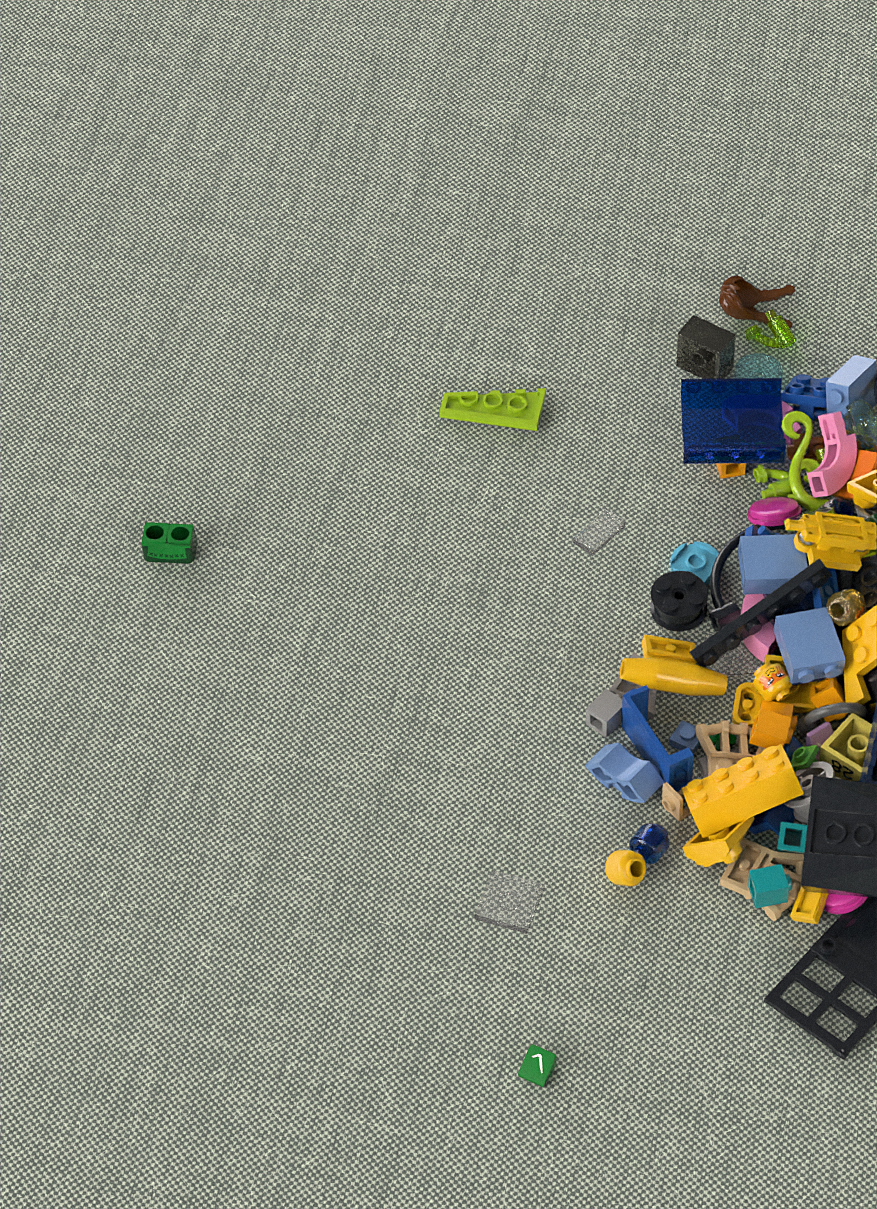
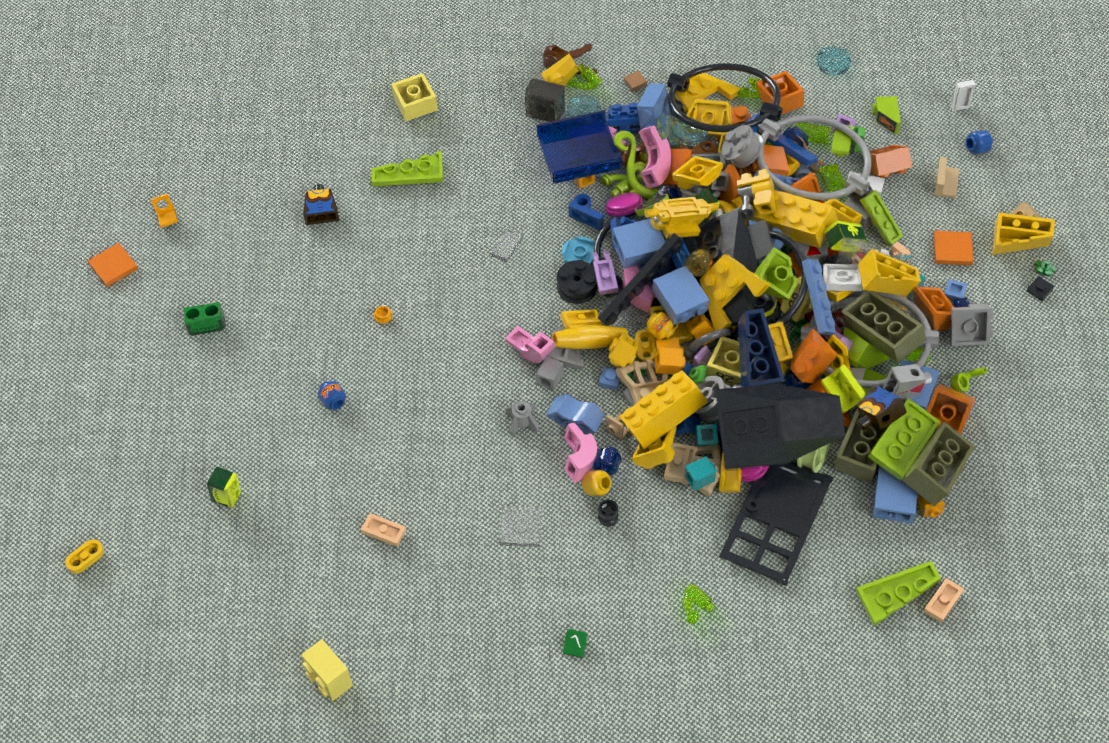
camera: 15 degrees left, 5 degrees up
(69, 448) = (112, 264): none -> orange tile
(128, 761) = (221, 487): none -> piece
(155, 398) = (167, 215): none -> light orange bracket
(202, 1021) = (326, 670): none -> light yellow brick
(308, 677) = (332, 395): none -> blue head
(327, 864) = (383, 530): none -> light nougat plate
(361, 428) = (320, 206): none -> torso
(405, 588) = (383, 314): none -> light orange plate
(529, 309) = (414, 97): none -> light yellow brick
(552, 760) = (522, 416): none -> light grey brick
(590, 672) = (530, 348): none -> bright pink arch
(617, 831) = (585, 452): none -> bright pink arch
(630, 910) = (607, 508): none -> black wheel
(673, 768) = (582, 386): blue panel -> none
(712, 703) = (623, 350): none -> yellow brick
(714, 508) = (581, 211): none -> blue plate
(717, 598) = (605, 274): none -> lavender hinge
(724, 1051) = (699, 597): none -> clear neon green plant
(738, 315) = (561, 71): none -> yellow slope
(841, 349) = (635, 81): none -> medium nougat tile

